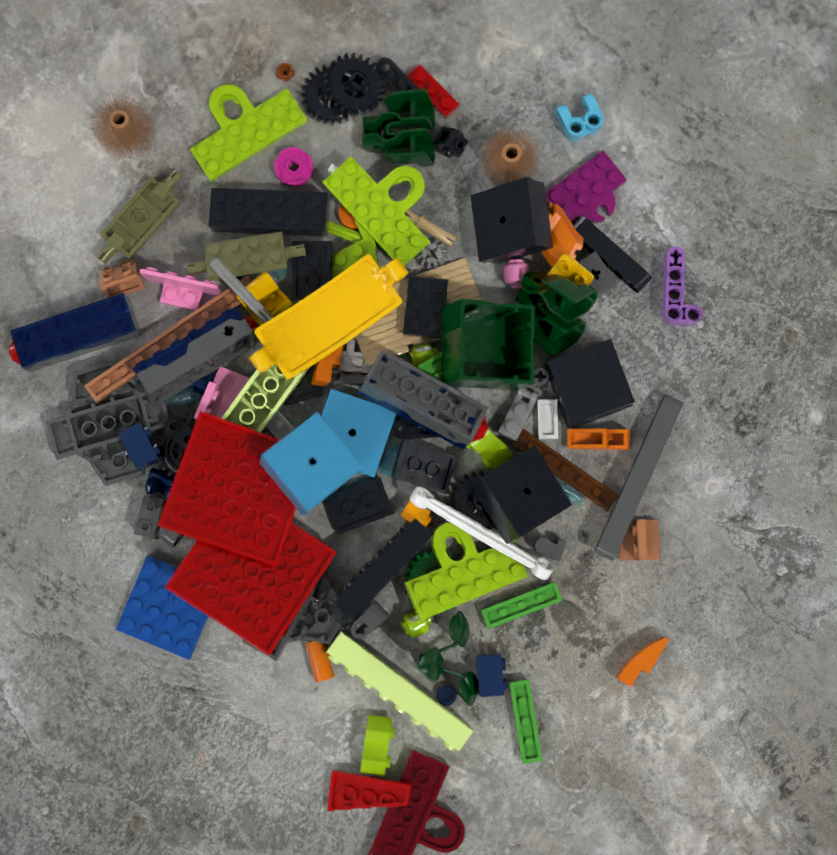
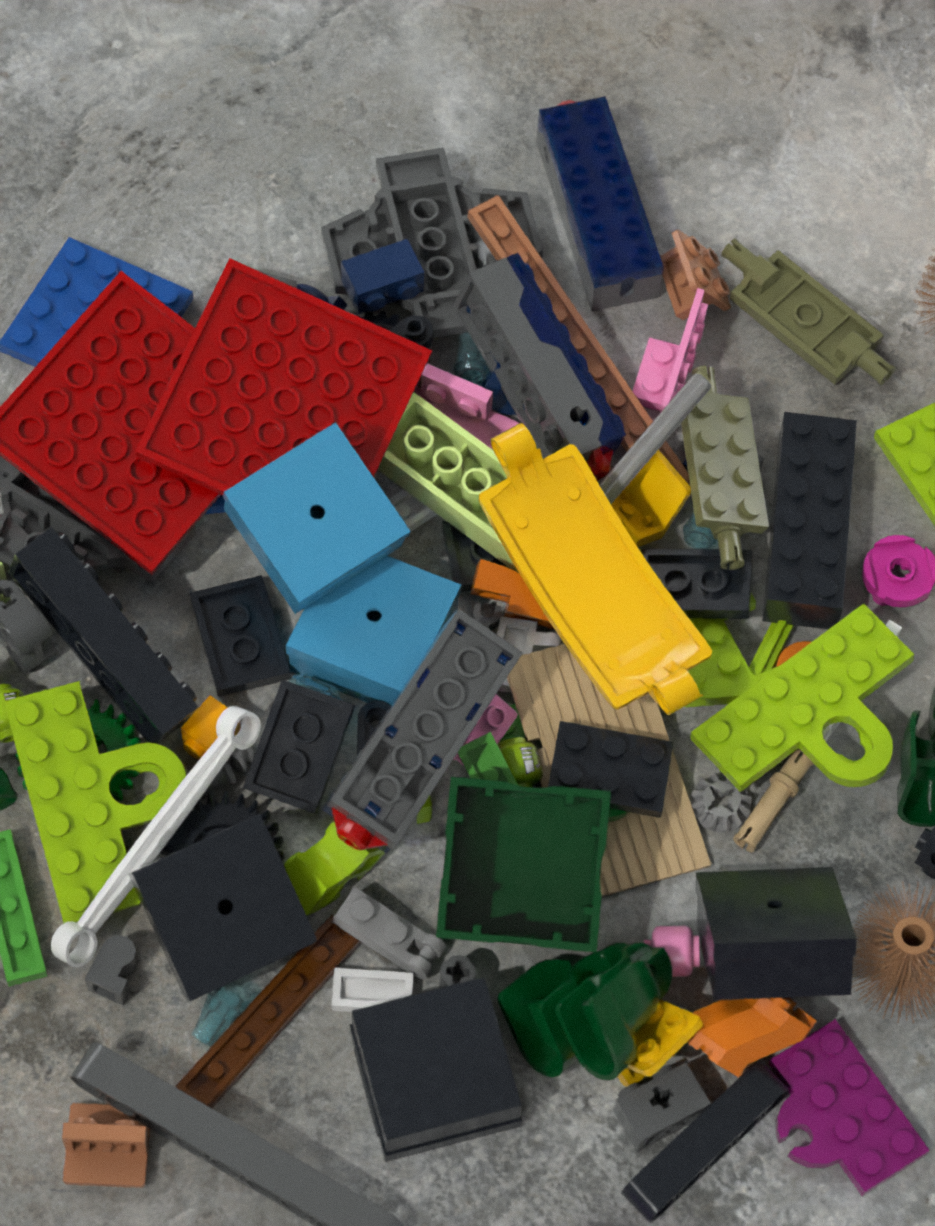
camera: 90 degrees right, 20 degrees down
(599, 439) = (321, 1085): orange slope -> none

